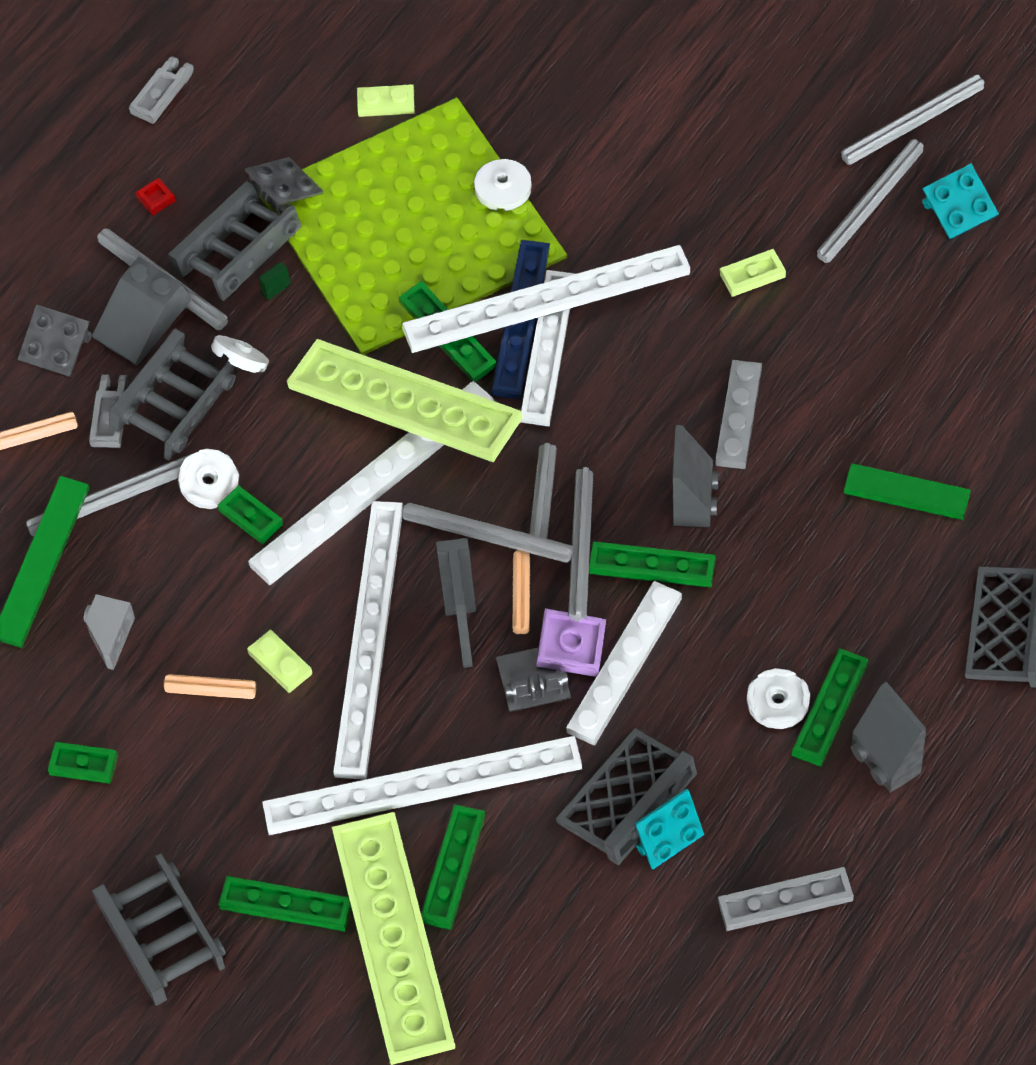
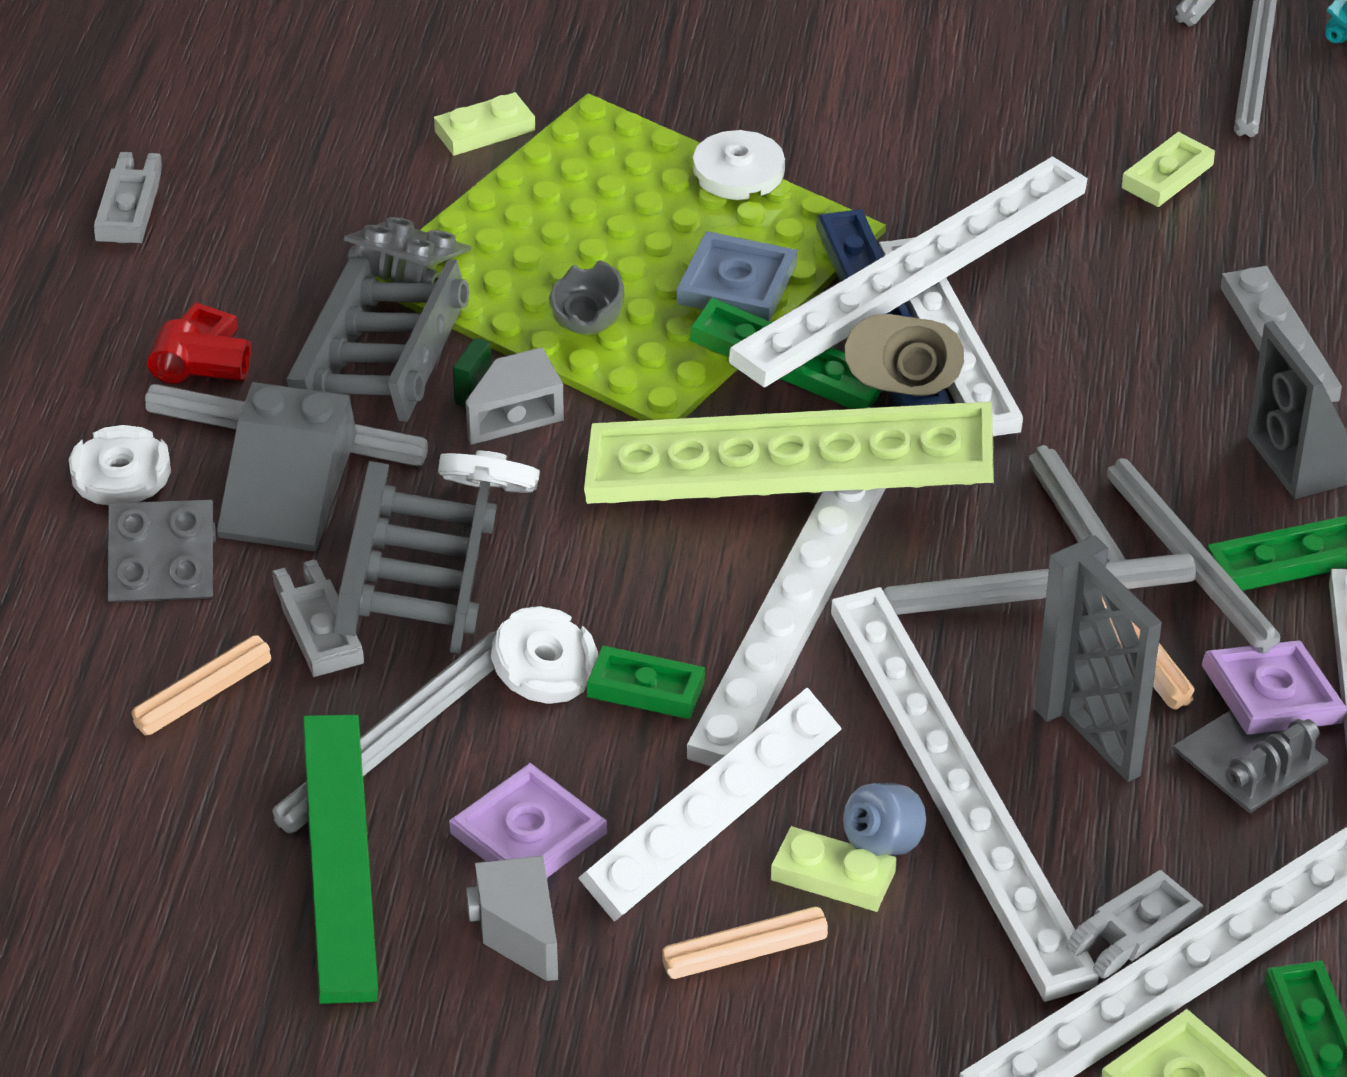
camera: 30 degrees left, 15 degrees down
(65, 265) = (119, 465): none -> white plate
(134, 212) = (184, 351): none -> red piece
(146, 577) = (529, 819): none -> lavender tile
(240, 600) = (709, 804): none -> white plate
(286, 305) = (515, 397): none -> light grey slope
(313, 645) = (884, 819): none -> sand blue head
(355, 256) = (587, 298): none -> dark grey hair
(401, 753) = (1136, 922): none -> light grey hinge
(450, 267) = (737, 273): none -> sand blue plate
(496, 360) = (904, 354): none -> dark tan piece

